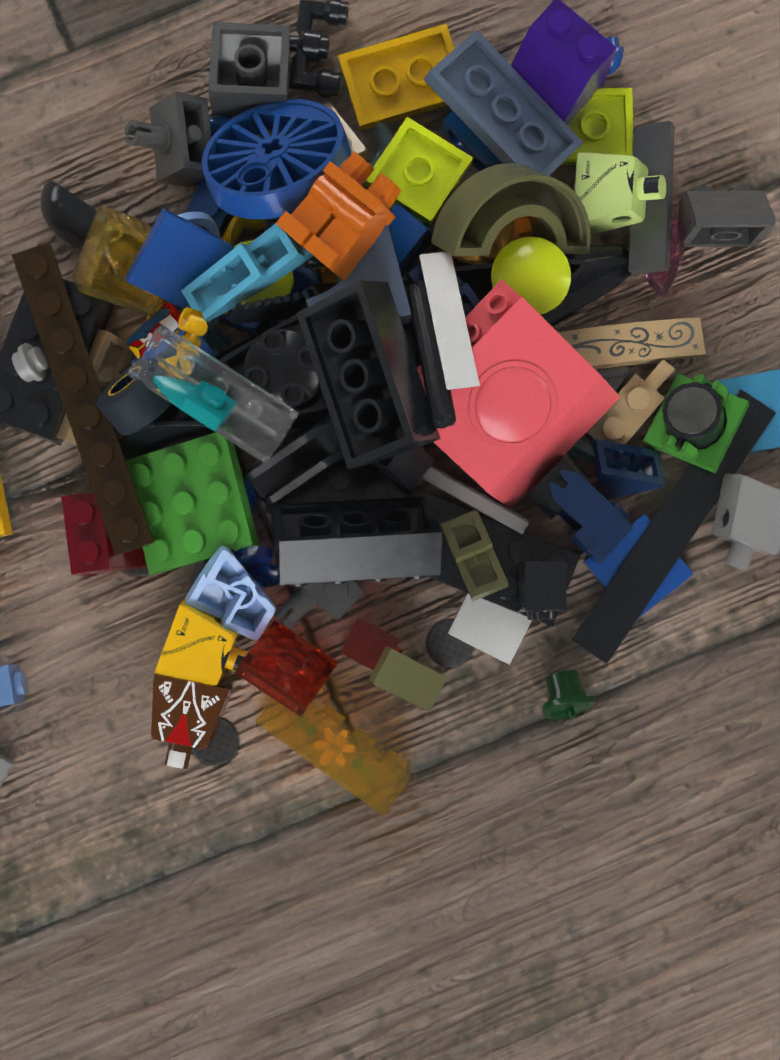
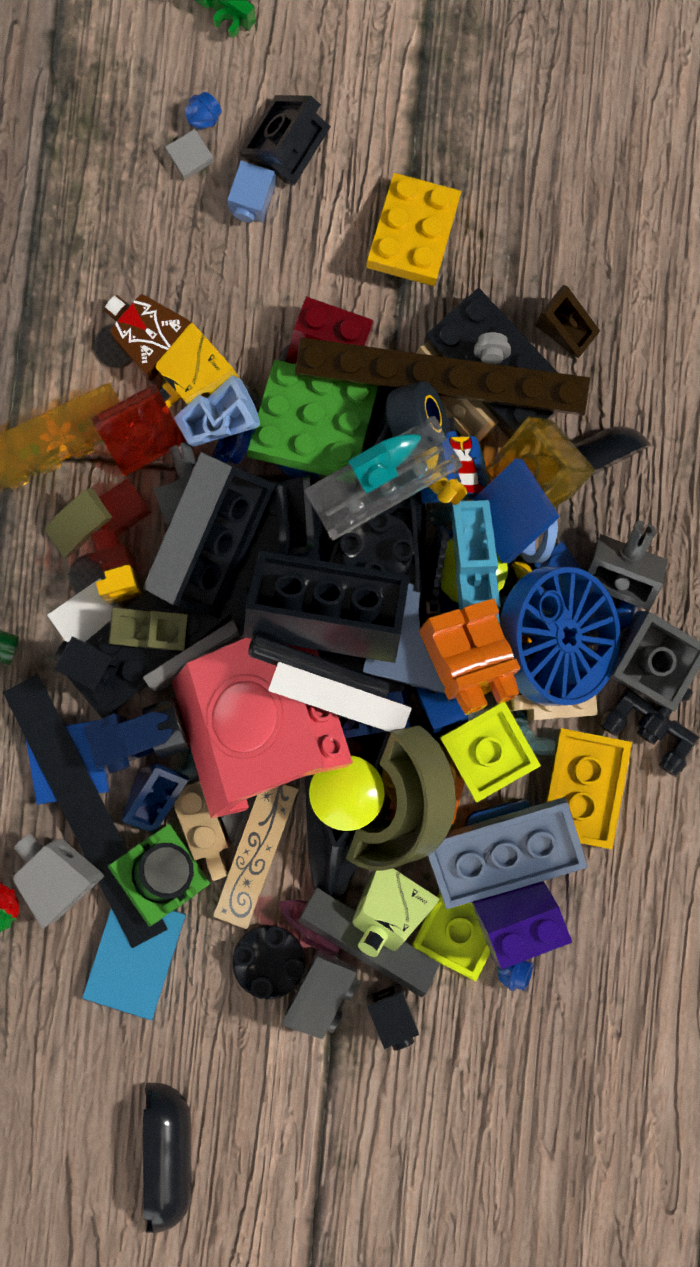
camera: 115 degrees right, 0 degrees up
(429, 616) = (119, 568): none -> hips
(708, 137) = (392, 1017): none -> black brick
(718, 282) = (268, 962): none -> black dish

